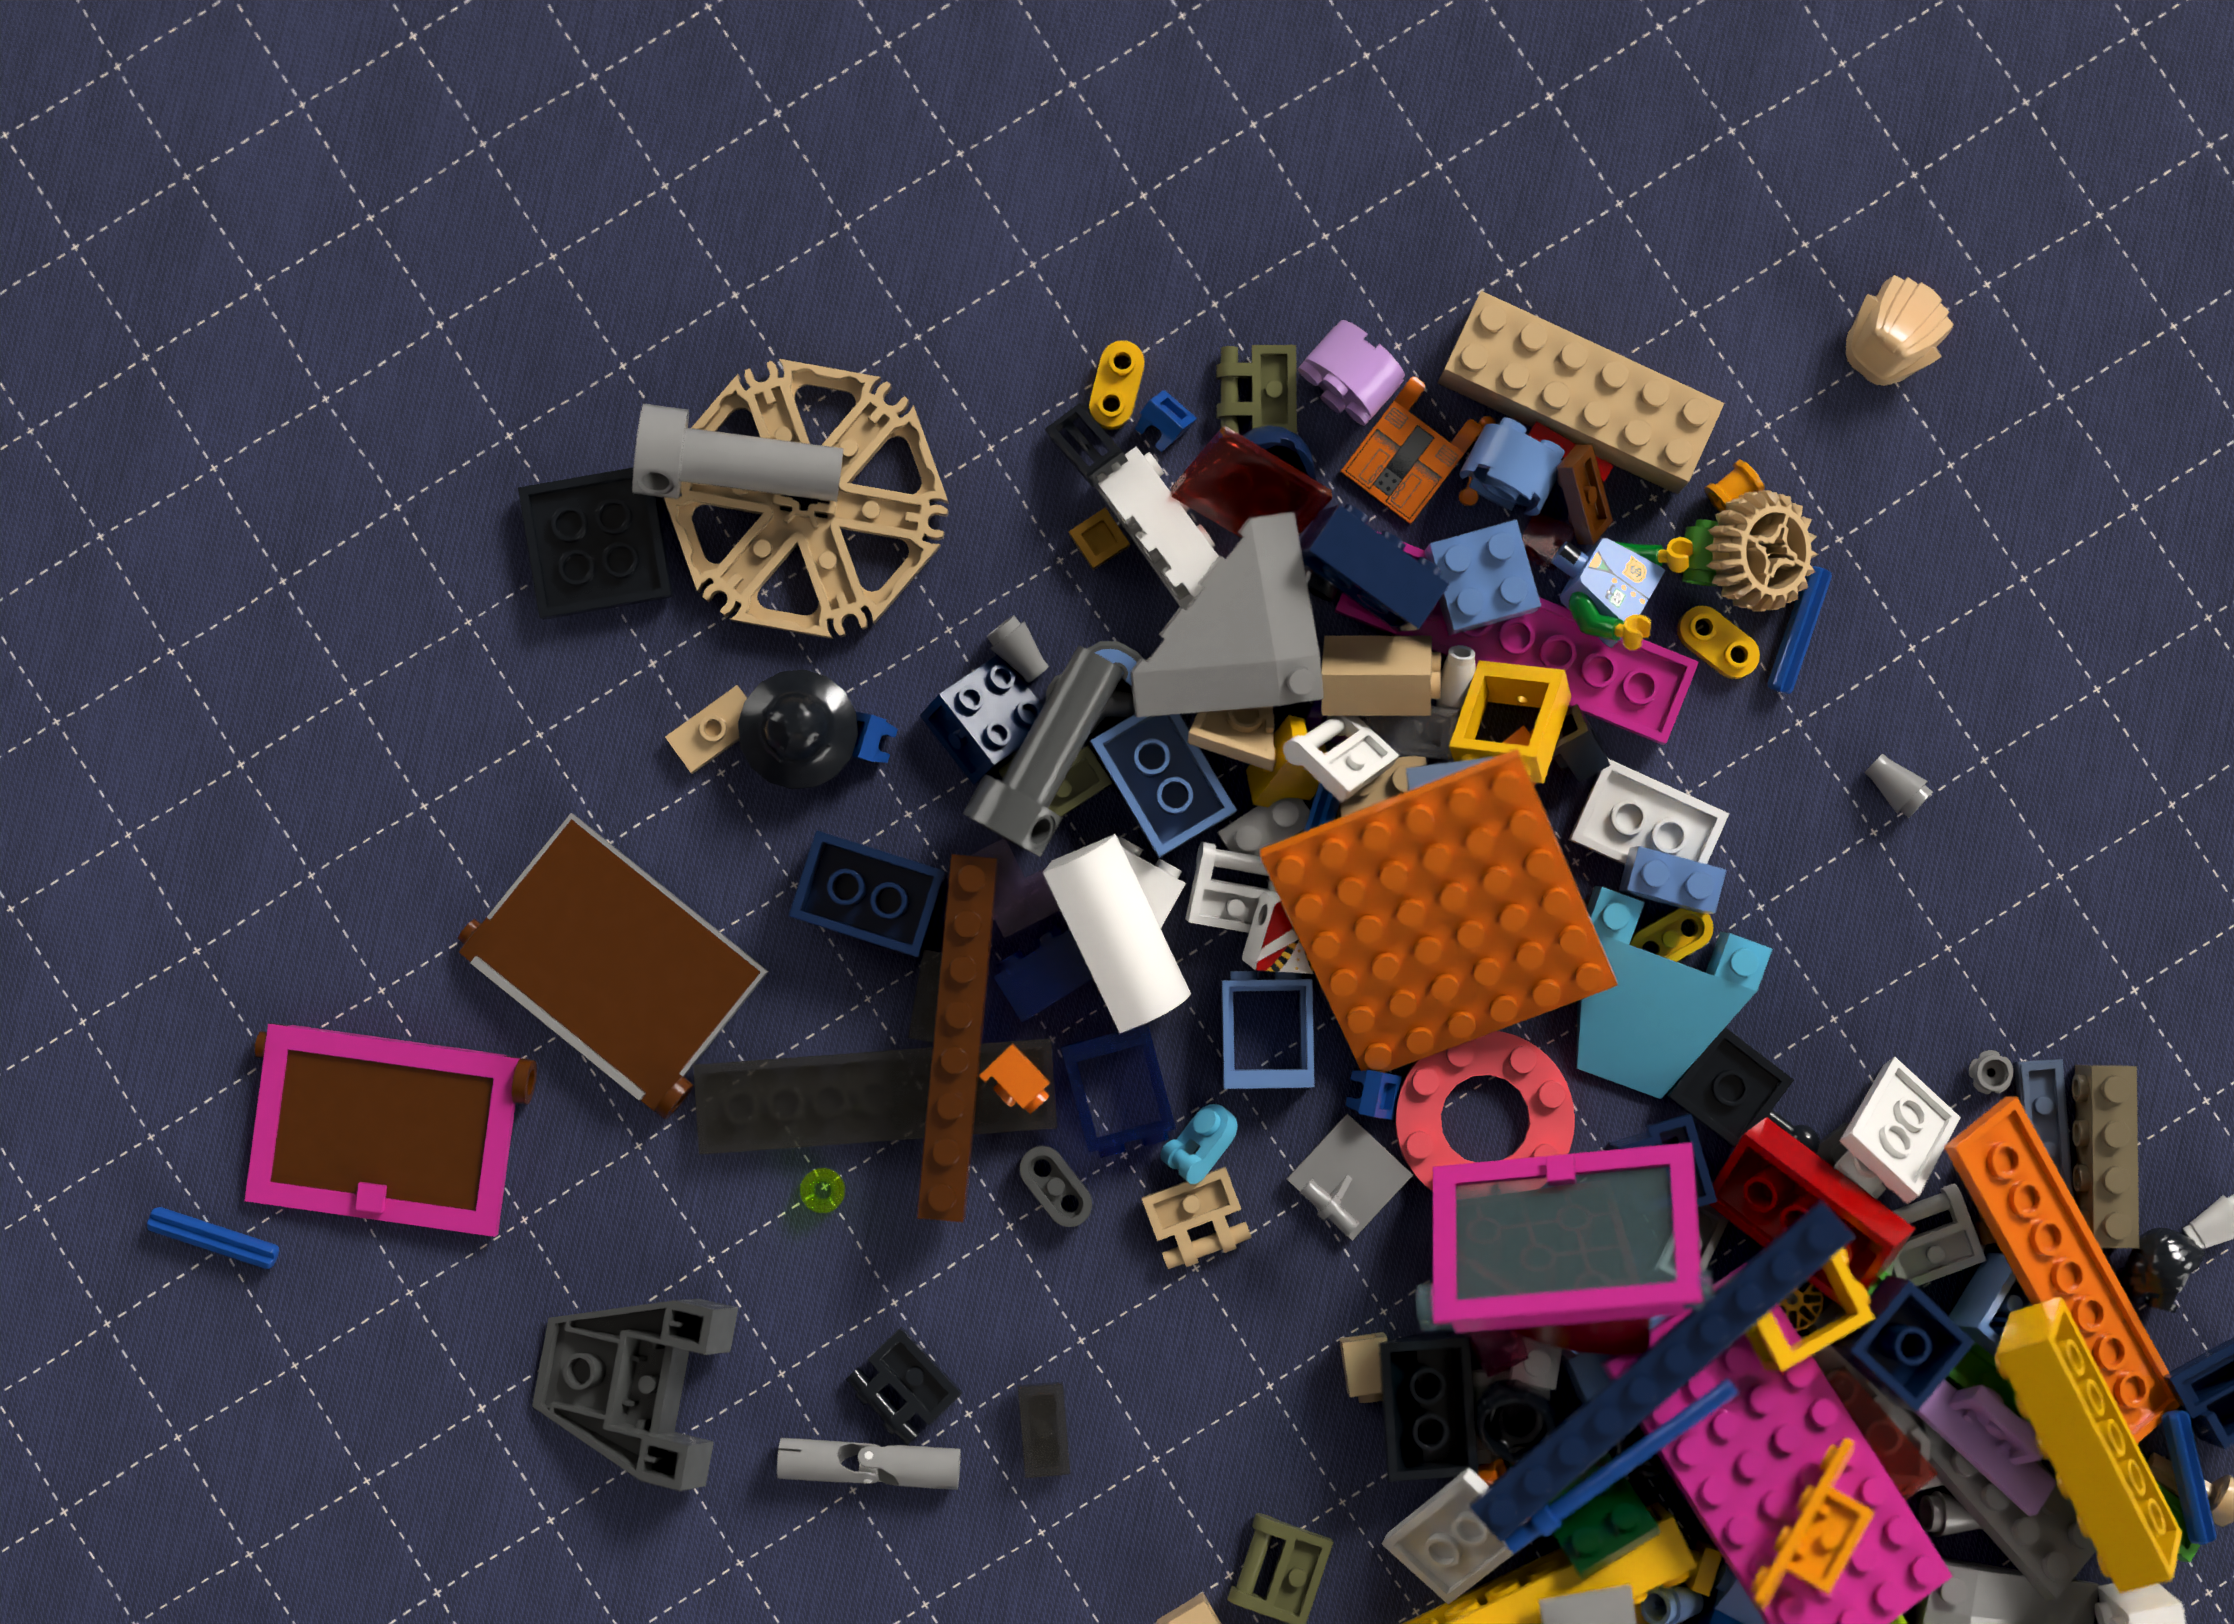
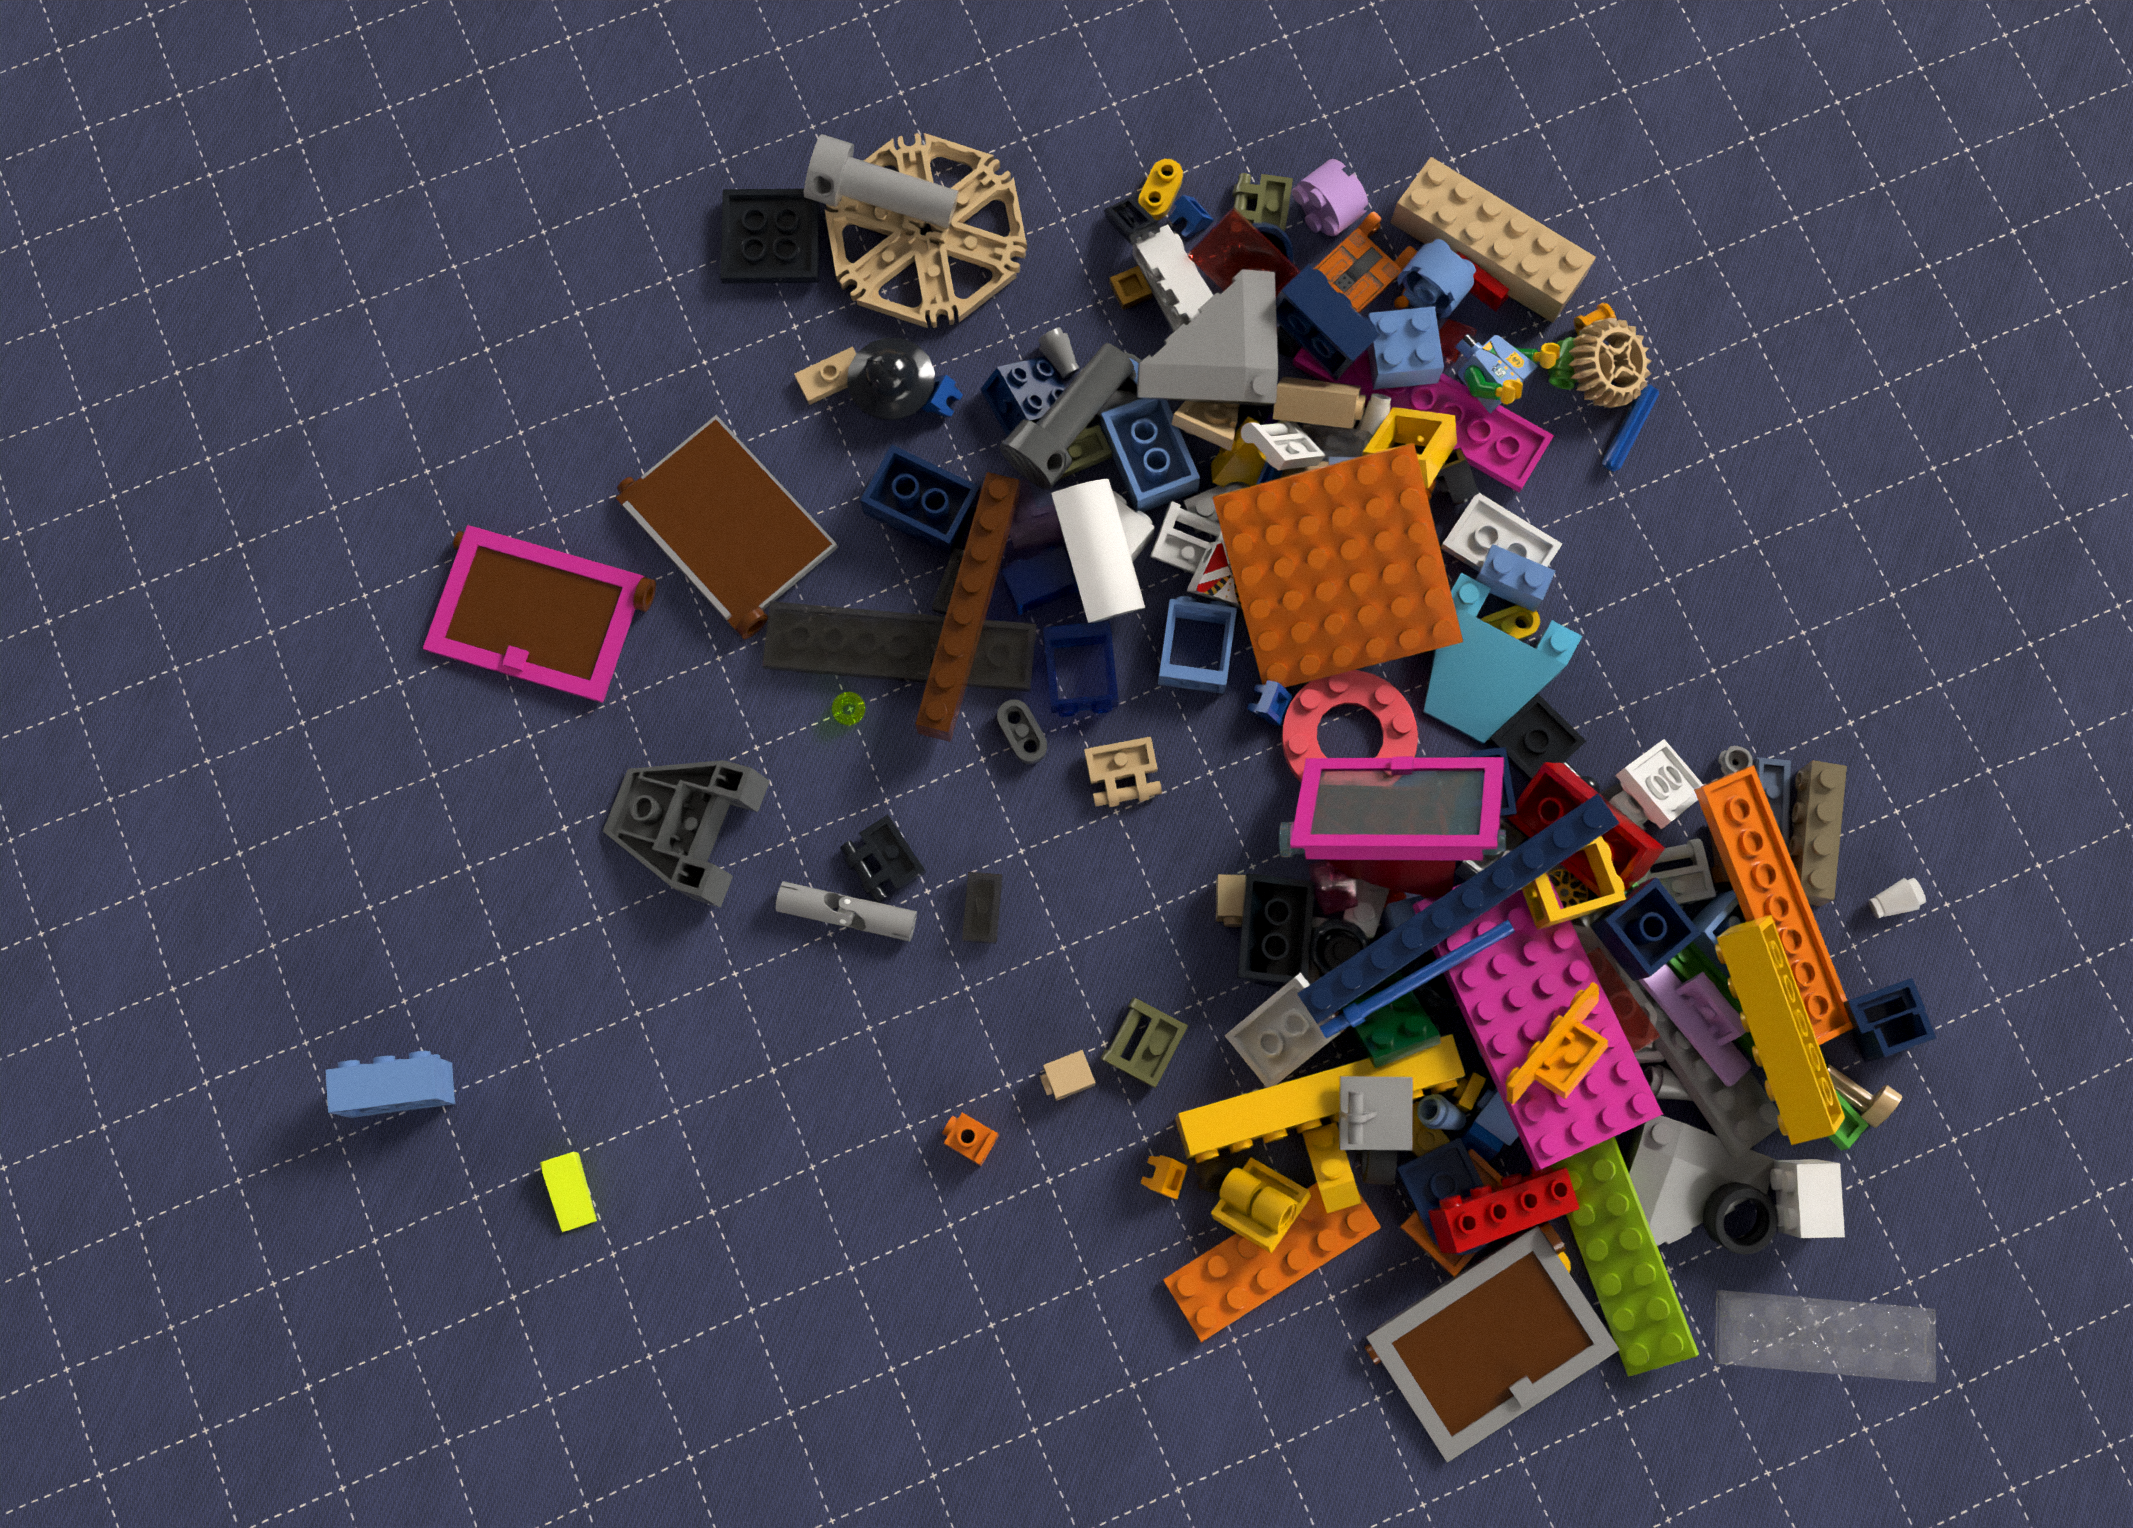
camera: 10 degrees right, 10 degrees down
(213, 1237) = (394, 671): blue axle -> none
(1017, 1080) = (1006, 643): orange brick -> none
(1210, 1128) = (1135, 716): medium azure plate -> none
(1349, 1177) = (1242, 761): light grey plate -> none
(1584, 494) = (1486, 303): reddish brown plate -> none
(1717, 645) = (1567, 428): yellow plate -> none
(1897, 331) = (1726, 236): tan hair -> none
(1898, 785) = (1691, 546): light grey cone -> none
(2159, 1268) = (1847, 919): black hair -> none
(2189, 1477) = (1854, 1080): blue axle -> none

